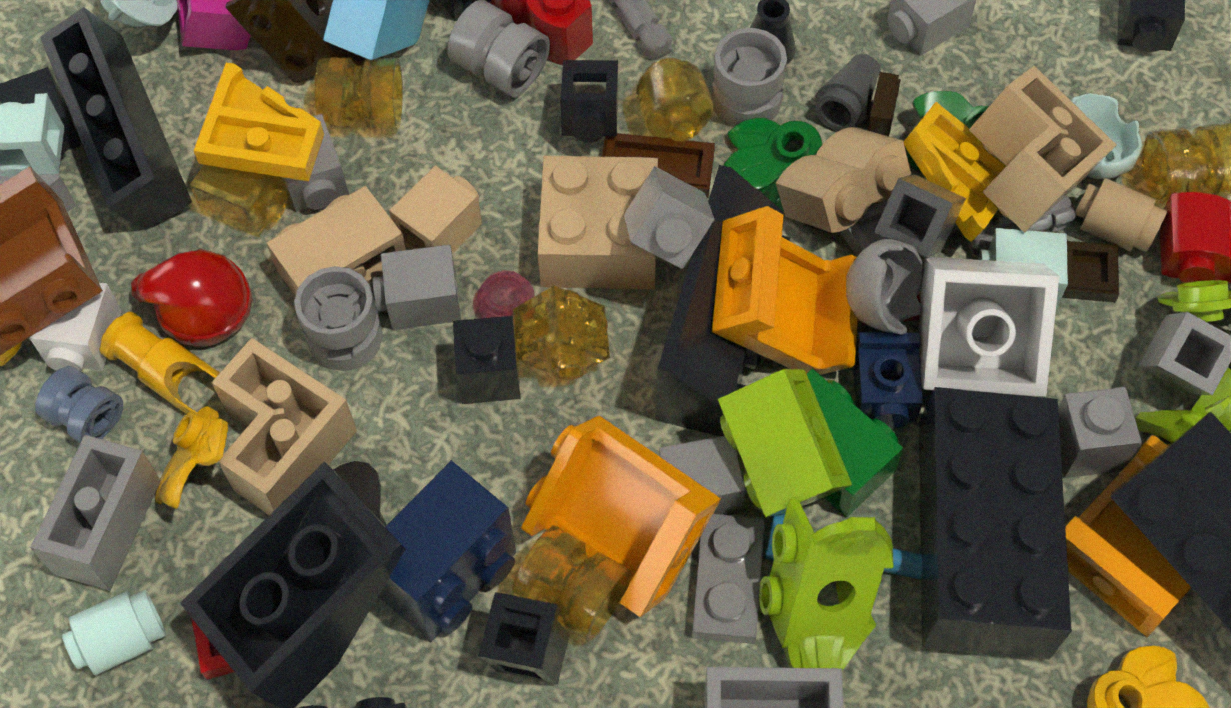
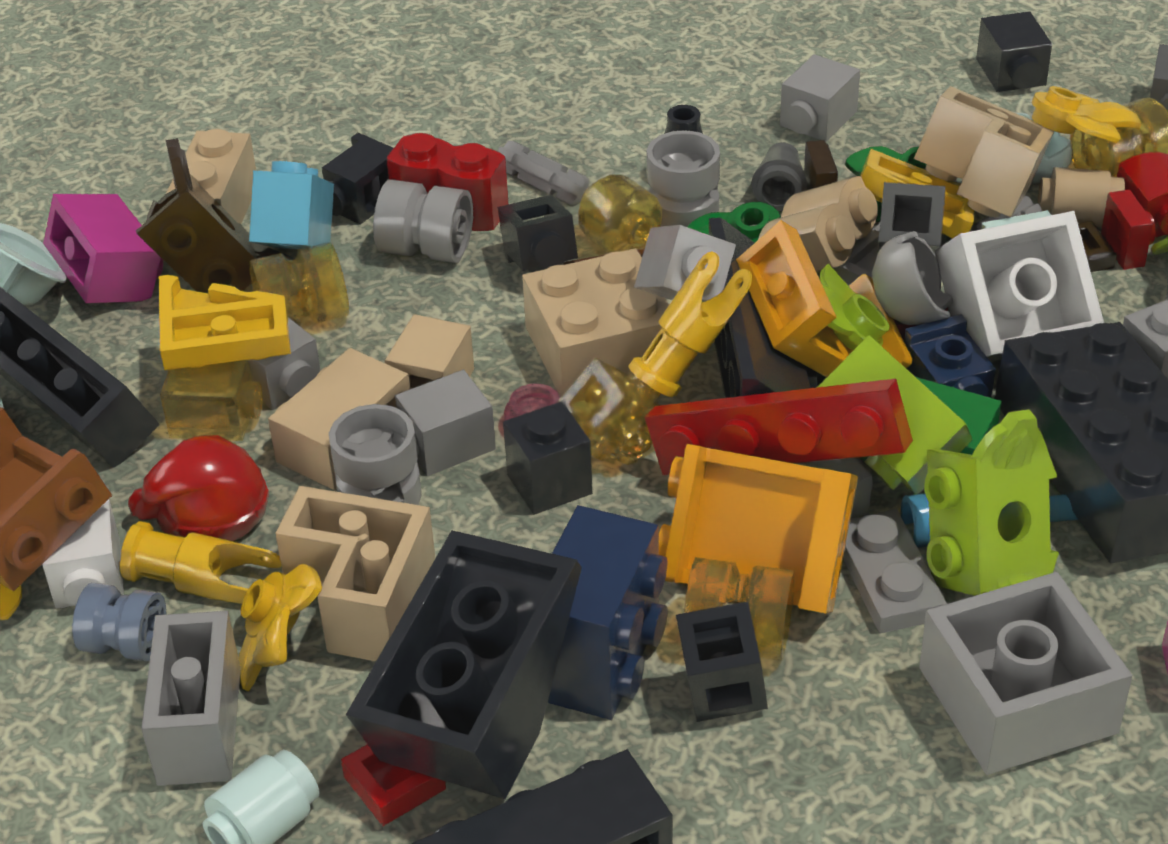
camera: 20 degrees left, 20 degrees down
(641, 289) = (689, 326): none -> yellow piece
(679, 423) = (787, 424): none -> red plate
(809, 294) = (855, 313): none -> lime plate
(1143, 271) = (1128, 229): none -> red plate
(1153, 136) = (1067, 111): none -> yellow plate

